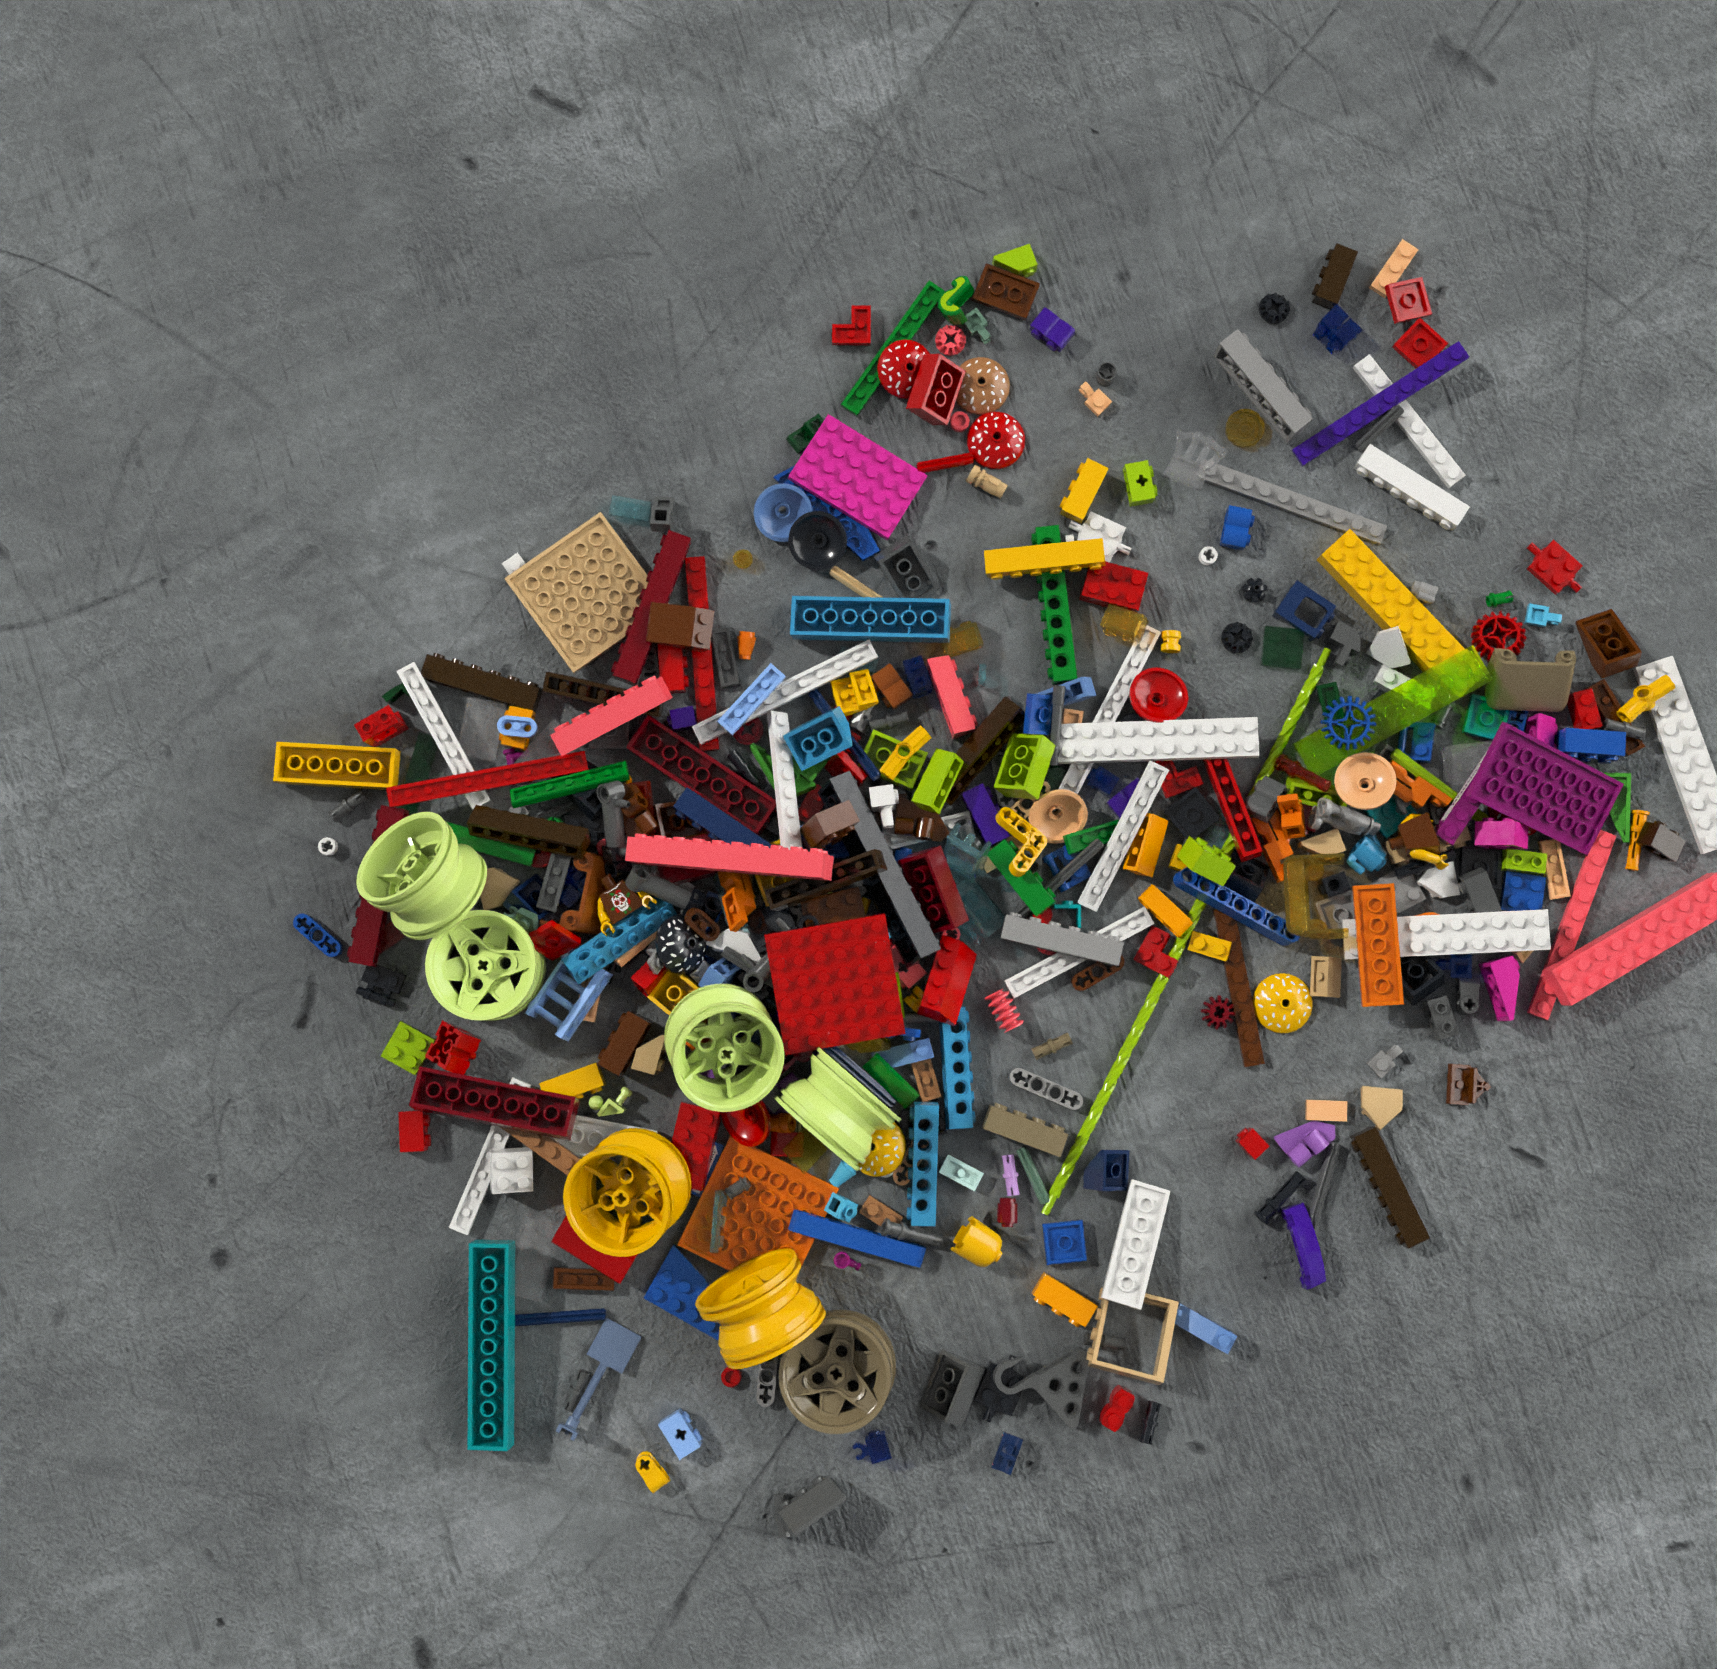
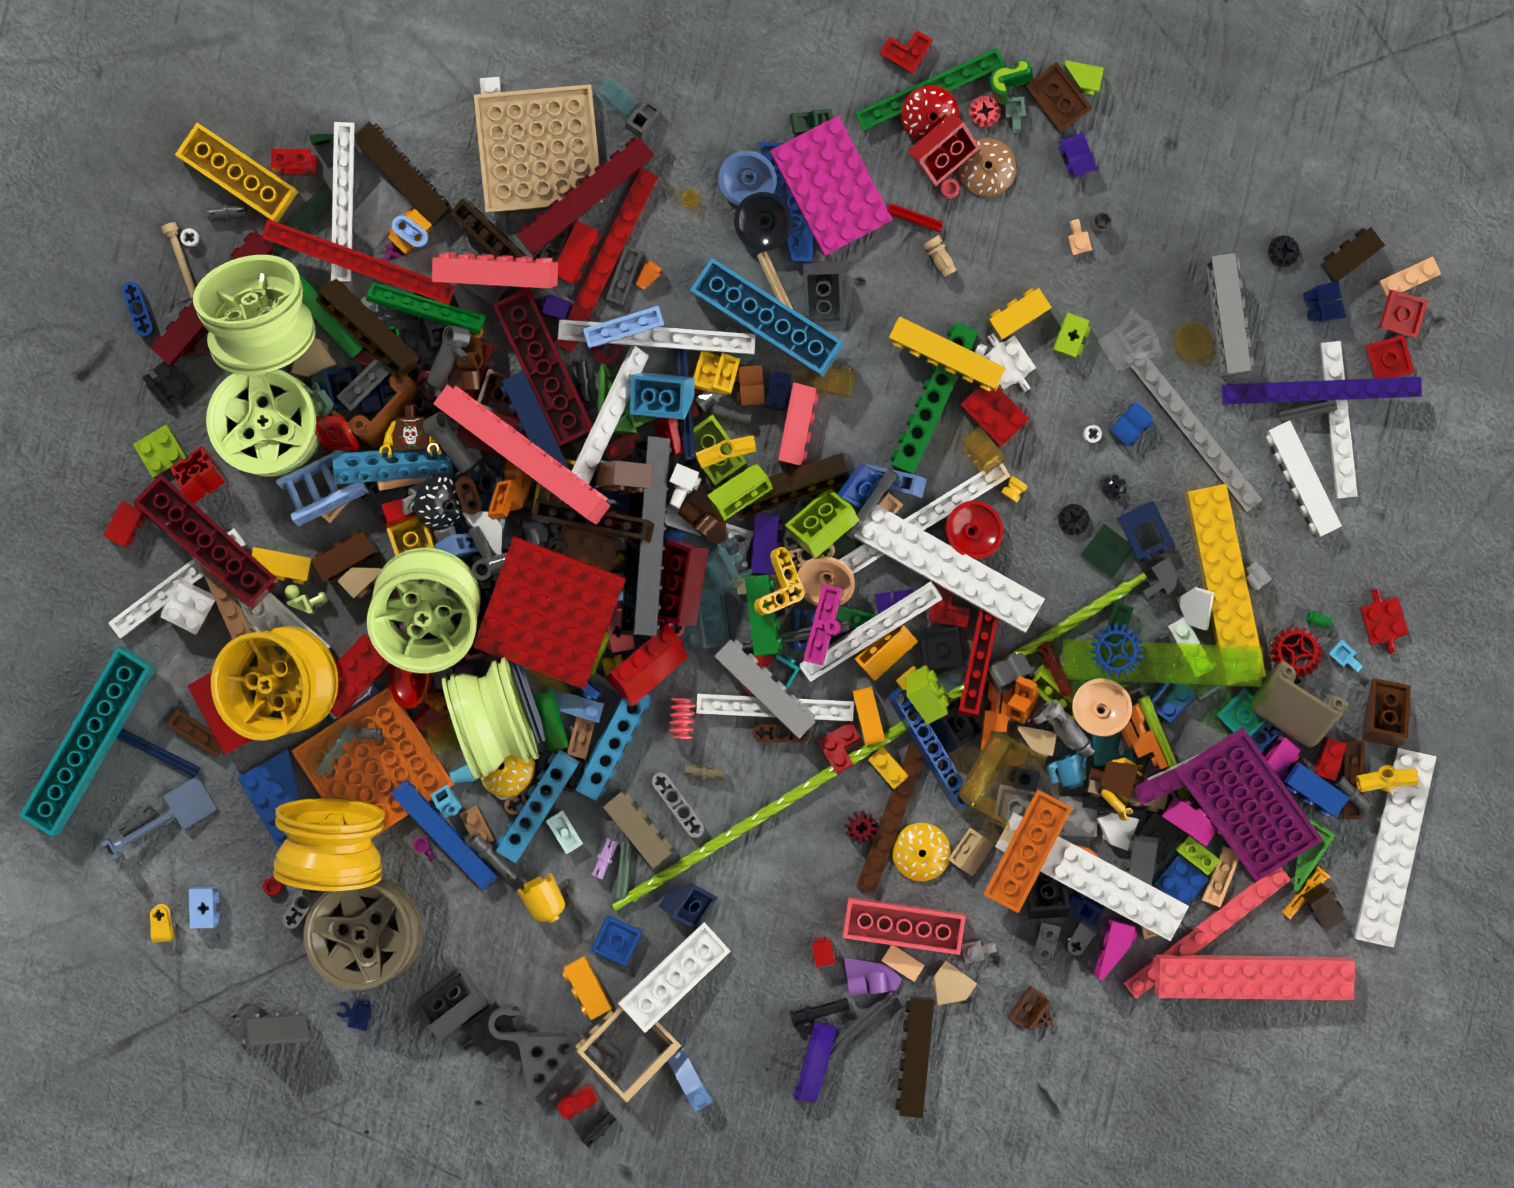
camera: 25 degrees right, 5 degrees up
(307, 849) = (170, 231): none -> tan piece
(680, 626) = (599, 227): reddish brown slope -> none
(981, 675) = (834, 422): clear light blue tile -> none
(994, 452) = (969, 237): red dish -> none
(1007, 1211) = (583, 887): dark red brick -> none
(1007, 1453) = (464, 1083): dark blue hips -> none
(1080, 854) = (824, 625): none -> dark pink hinge
(1102, 780) = (882, 573): clear blue brick -> none
(1308, 1076) = (903, 925): none -> coral brick

